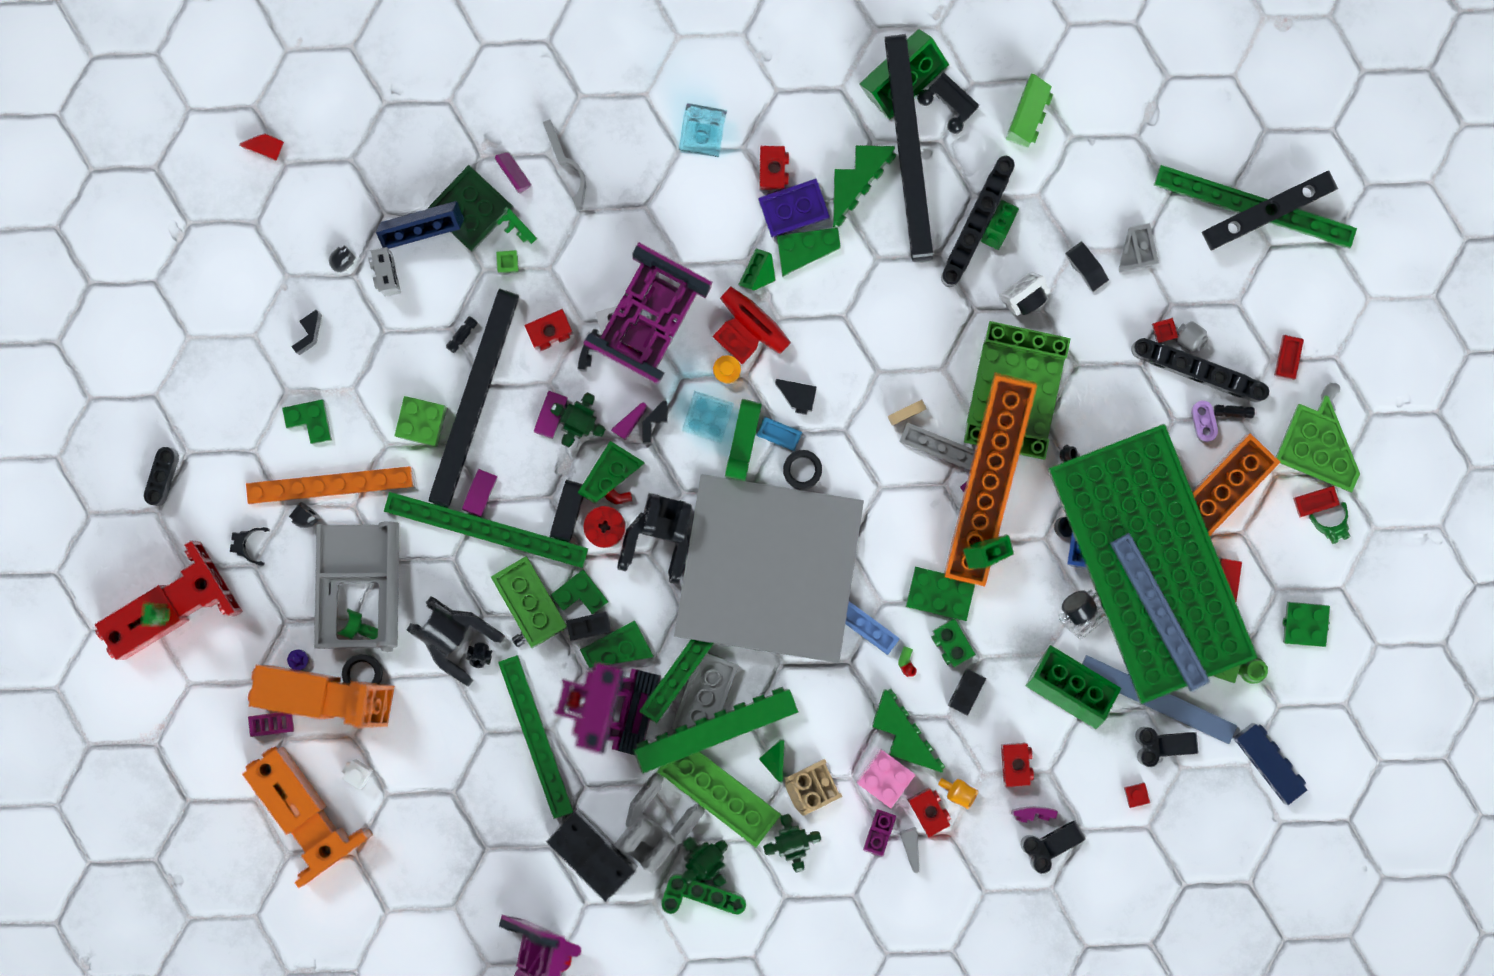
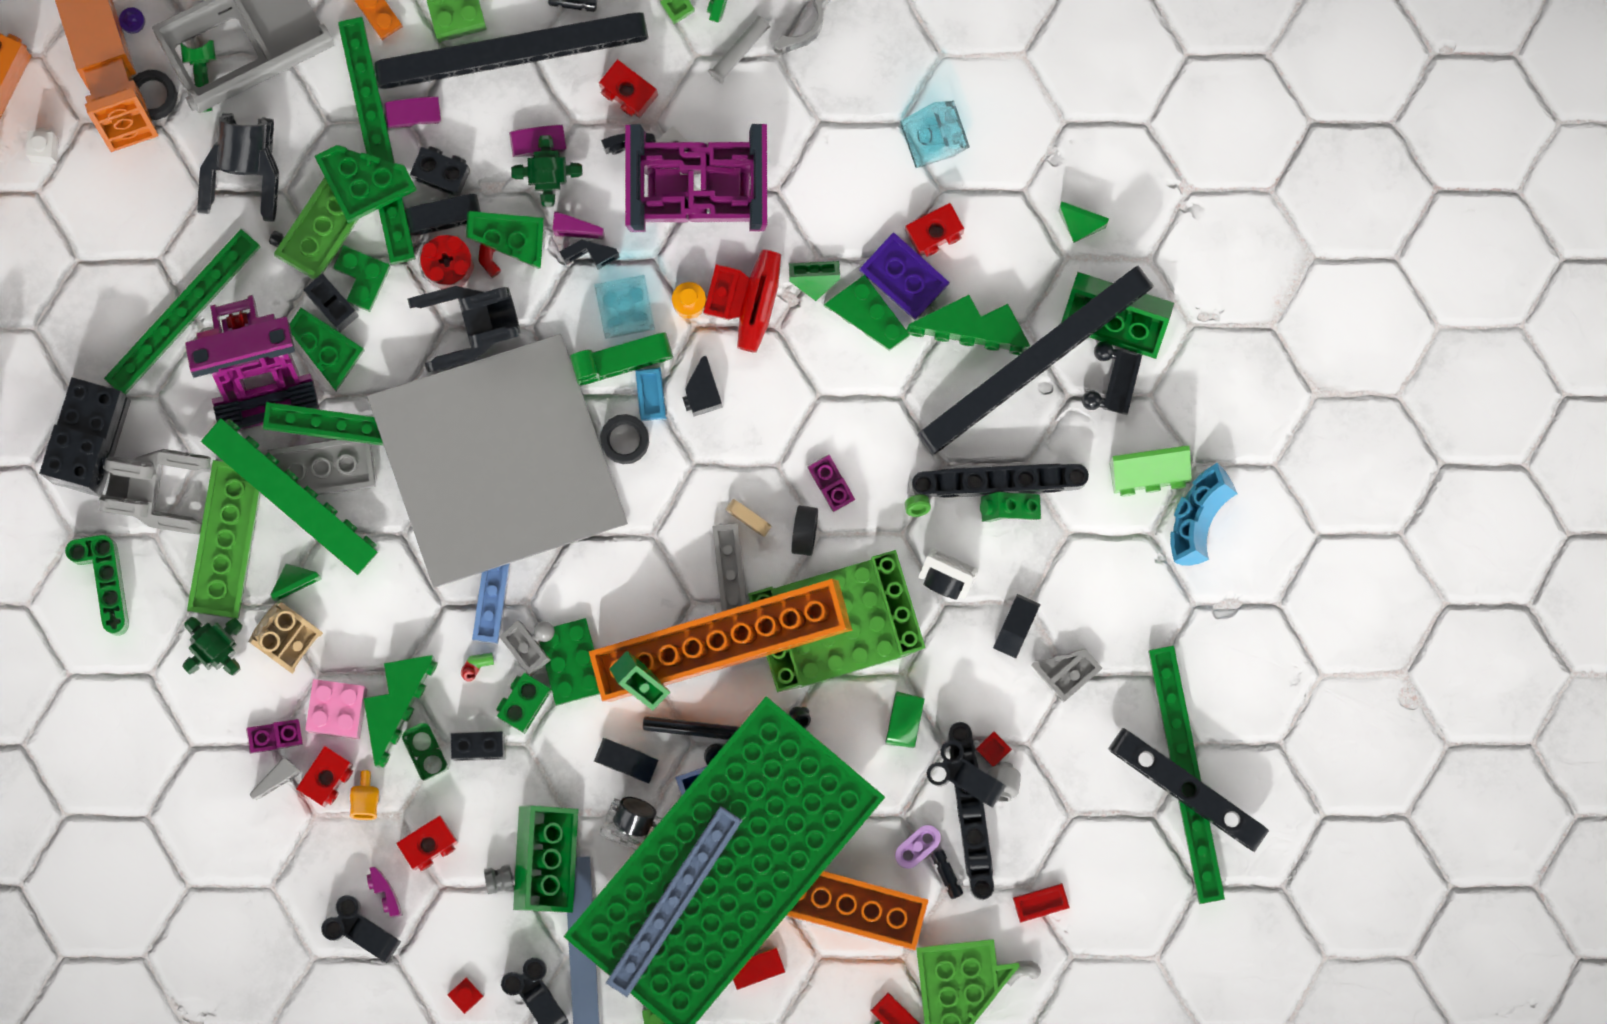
camera: 65 degrees right, 5 degrees down
(253, 728) = (36, 11): magenta slope -> none
(479, 655) = (237, 205): black gear -> none
(513, 555) = (363, 181): none -> green plate
(538, 501) = (436, 177): none -> black brick
(563, 234) = (739, 49): none -> light grey pin
(704, 862) = (141, 562): dark green piece -> none
(823, 63) = (1081, 222): none -> green slope
(913, 341) = (831, 483): none -> magenta slope
(913, 619) = (526, 646): none -> light grey plate
(939, 377) = (804, 530): none -> black tyre
(949, 732) = (422, 755): none -> green piece
(964, 288) = (917, 505): none -> bright green tile
(1033, 592) = (626, 760): none -> black slope
(1035, 533) = (688, 728): none -> black axle
(1069, 727) = (499, 879): none -> dark grey wheel
(1076, 98) = (1196, 513): none -> dark azure brick
(1111, 381) = (904, 720): none -> green piece
(1178, 359) = (967, 776): none -> black piece

